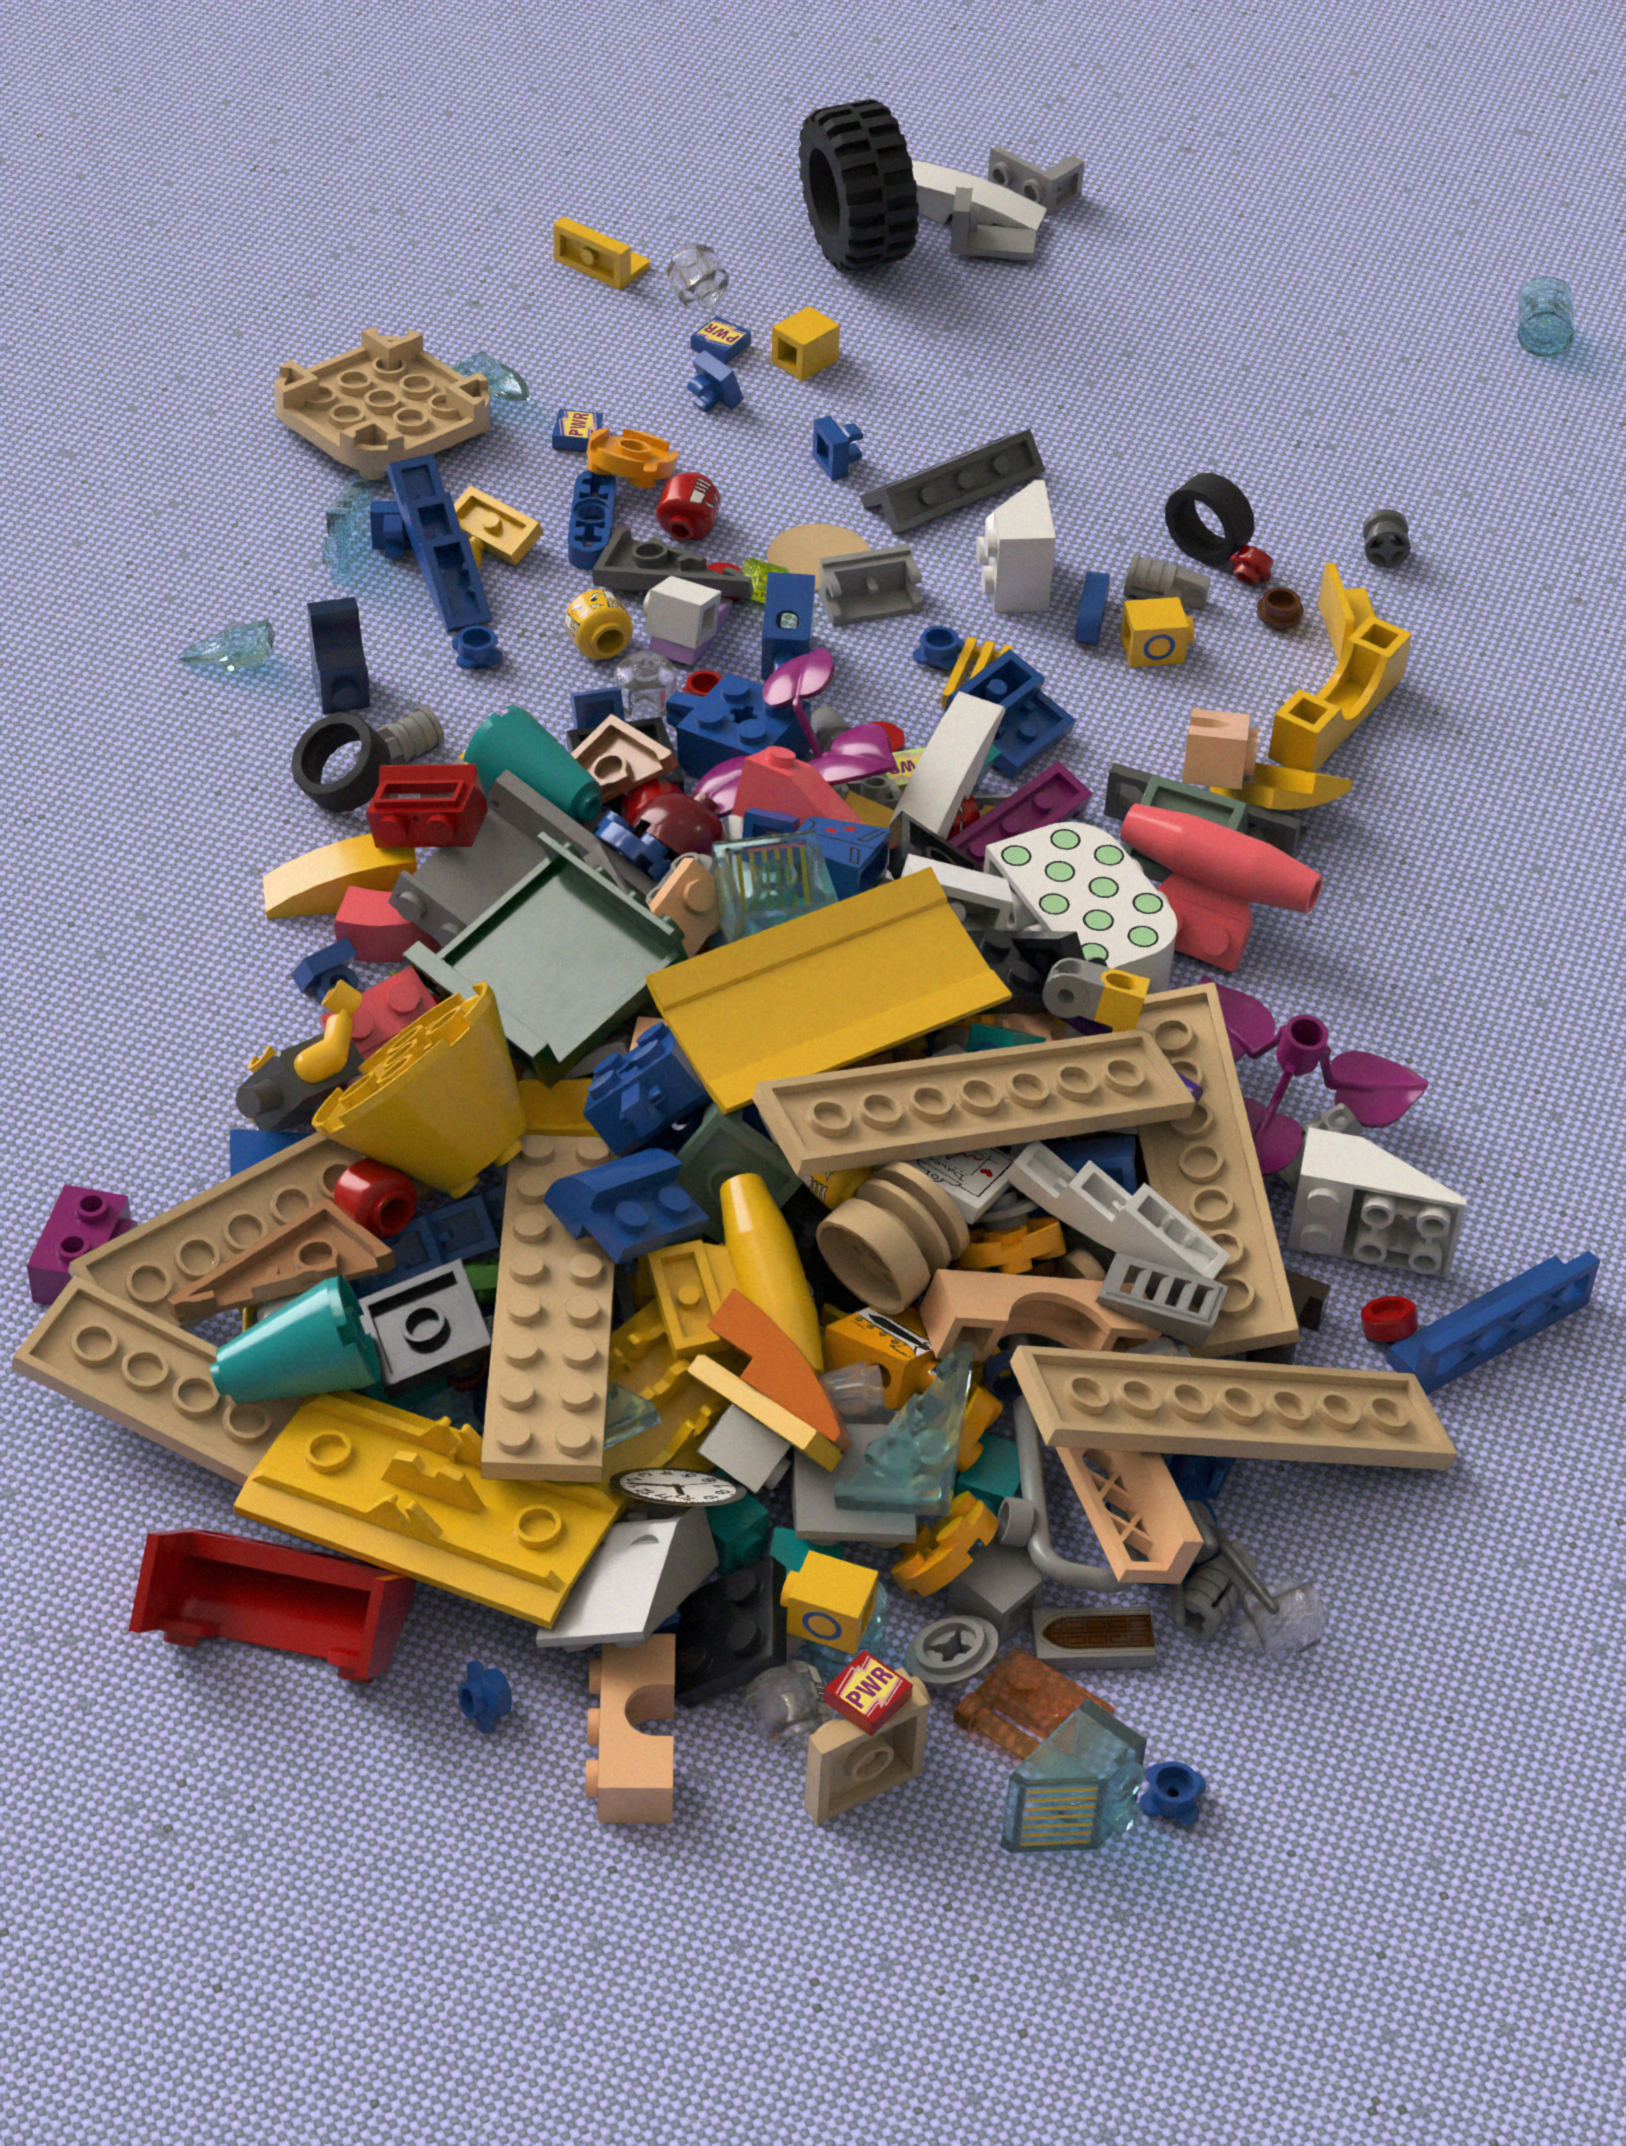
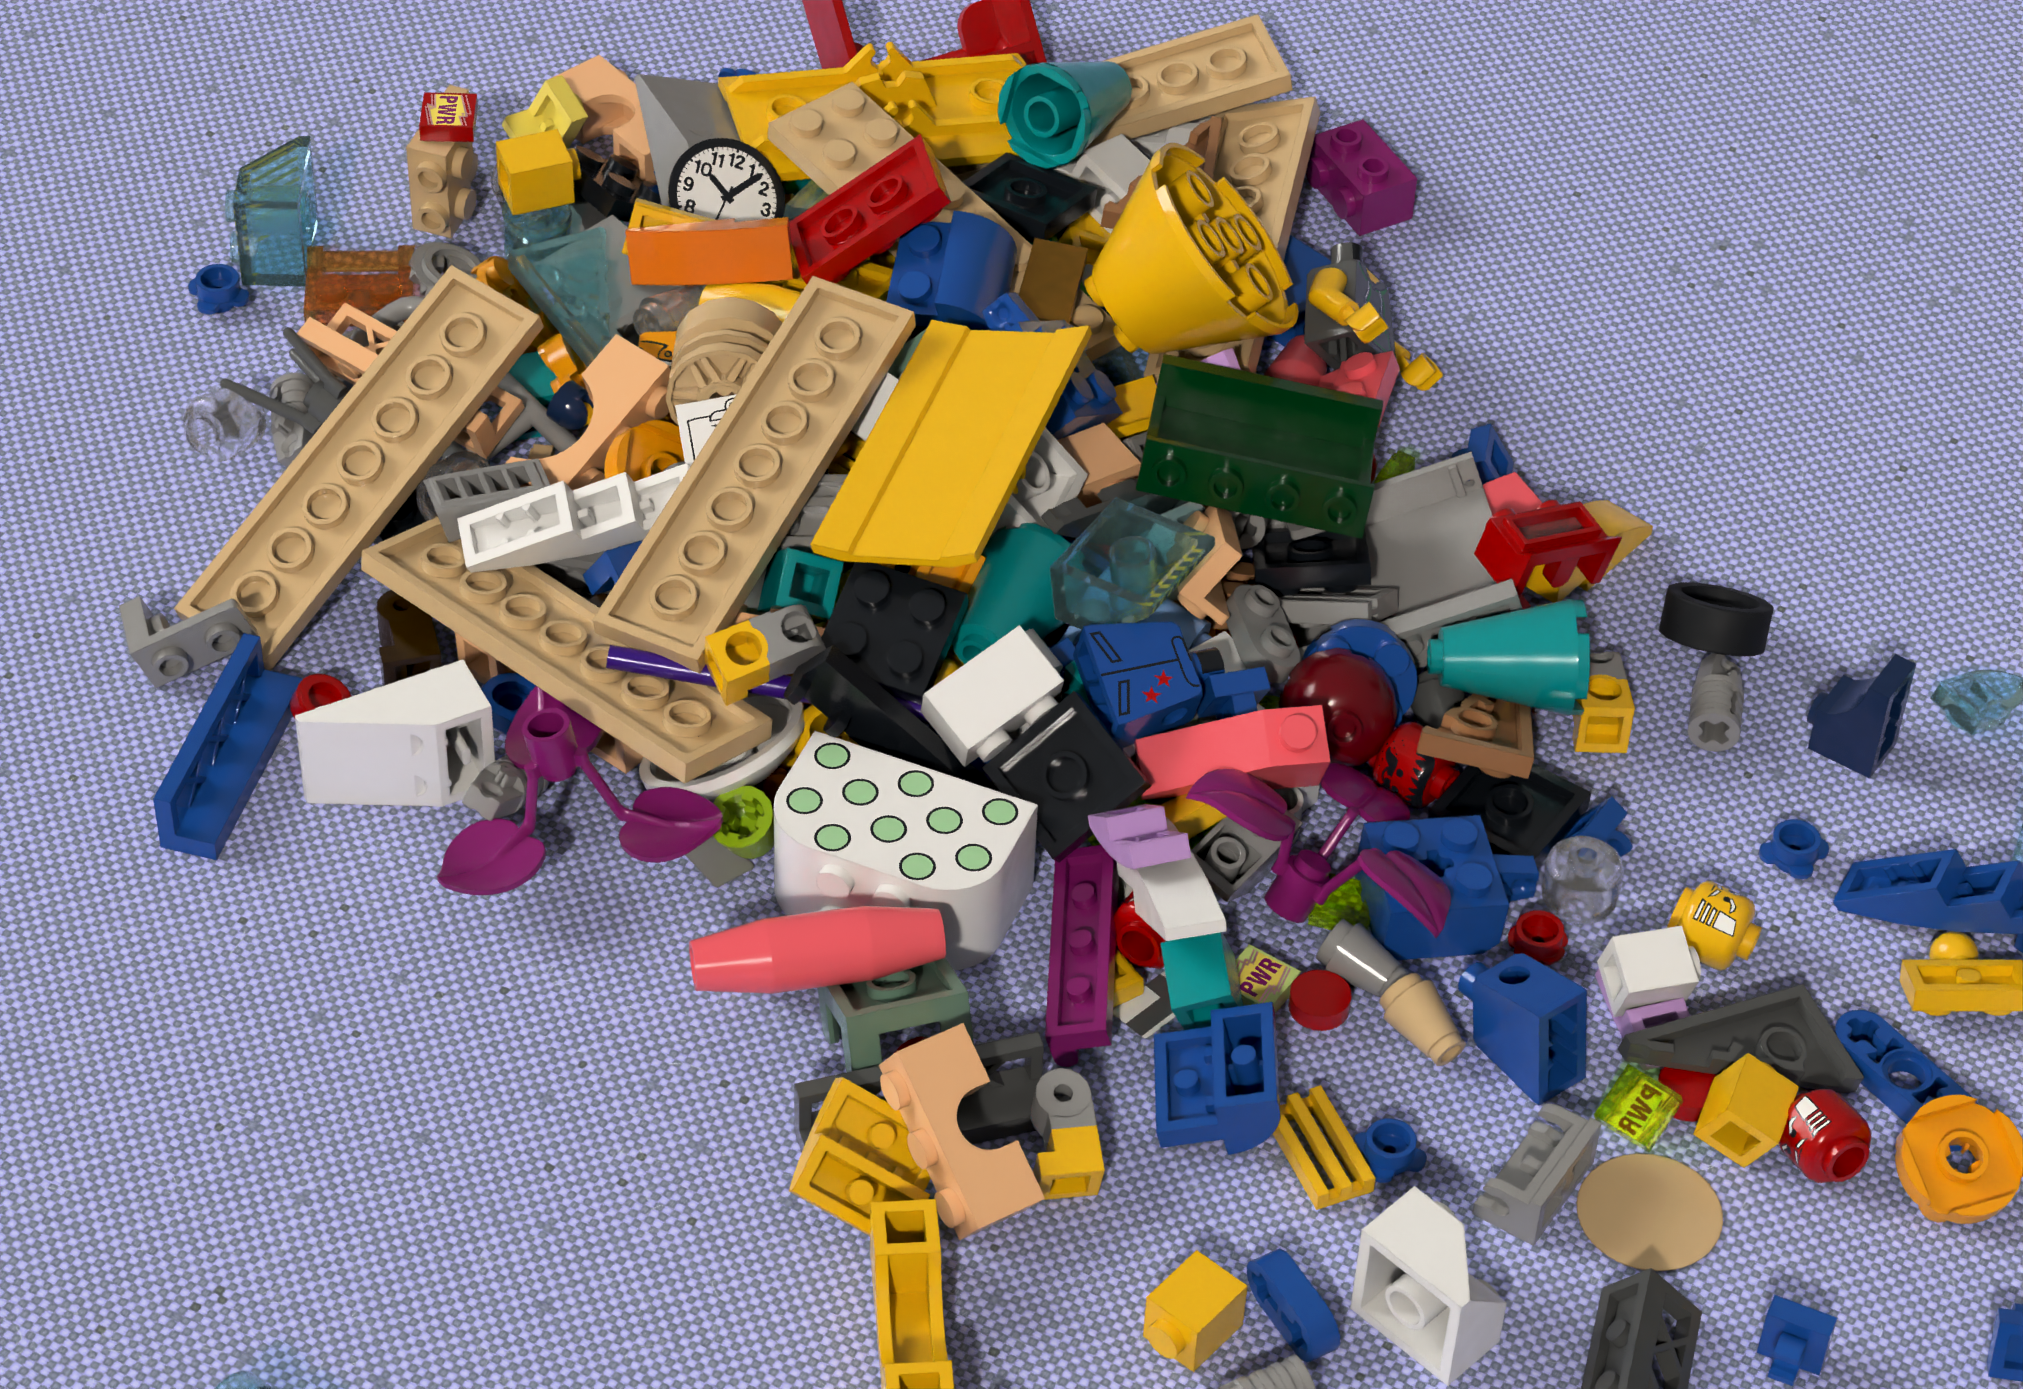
camera: 140 degrees right, 0 degrees up
(528, 1173) = (1053, 279): none -> pearl gold tile
(646, 1269) = (869, 213): none -> red plate
(709, 1777) = (551, 109): none -> light yellow bracket
(719, 533) = (1746, 1110): none -> yellow brick
(841, 691) = (1422, 1018): none -> tan cone
(947, 781) = (1139, 836): none -> lavender slope
(1142, 736) = (1067, 1121): none -> leg
(1489, 1411) = (179, 649): none -> light grey bracket

